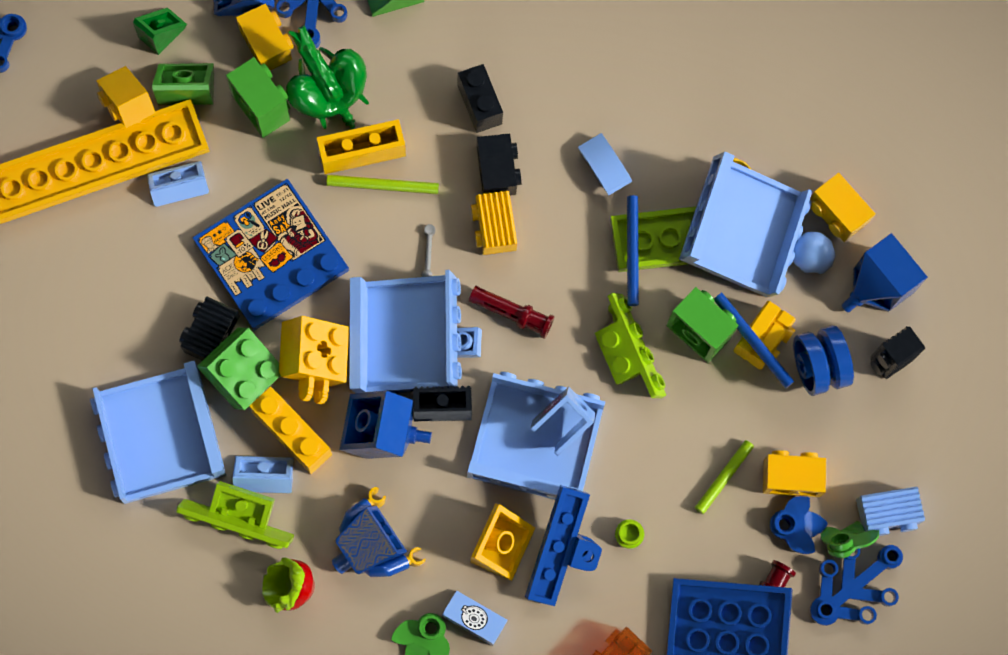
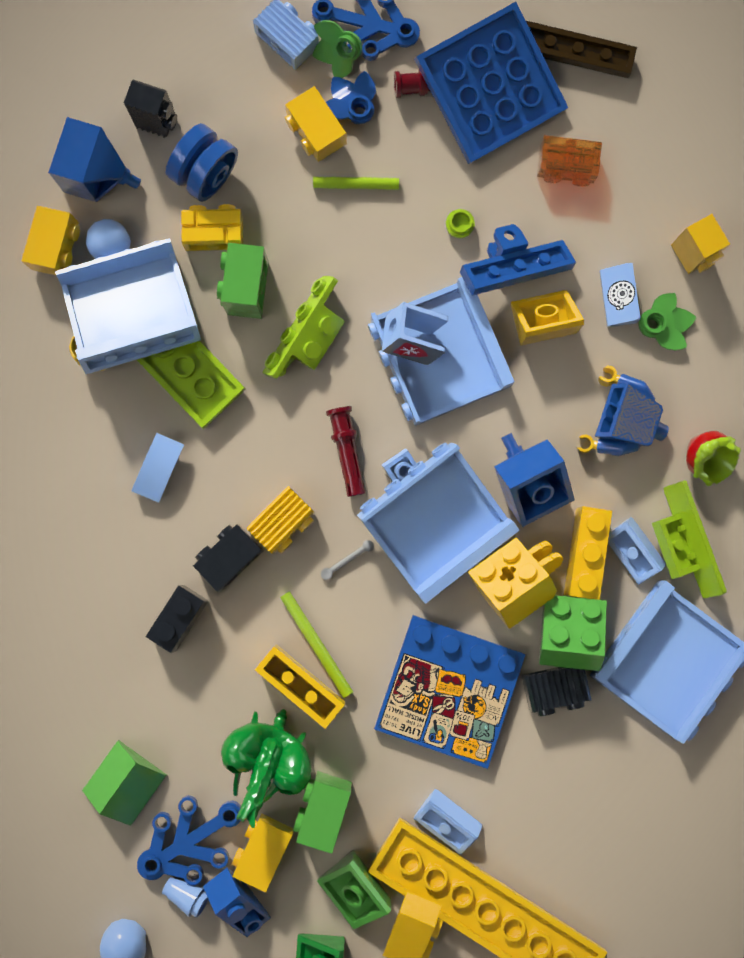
camera: 125 degrees left, 10 degrees up
(442, 404) = (473, 444): black brick -> none
(632, 251) = (220, 386): blue bar -> none
(755, 342) = (228, 227): blue bar -> none

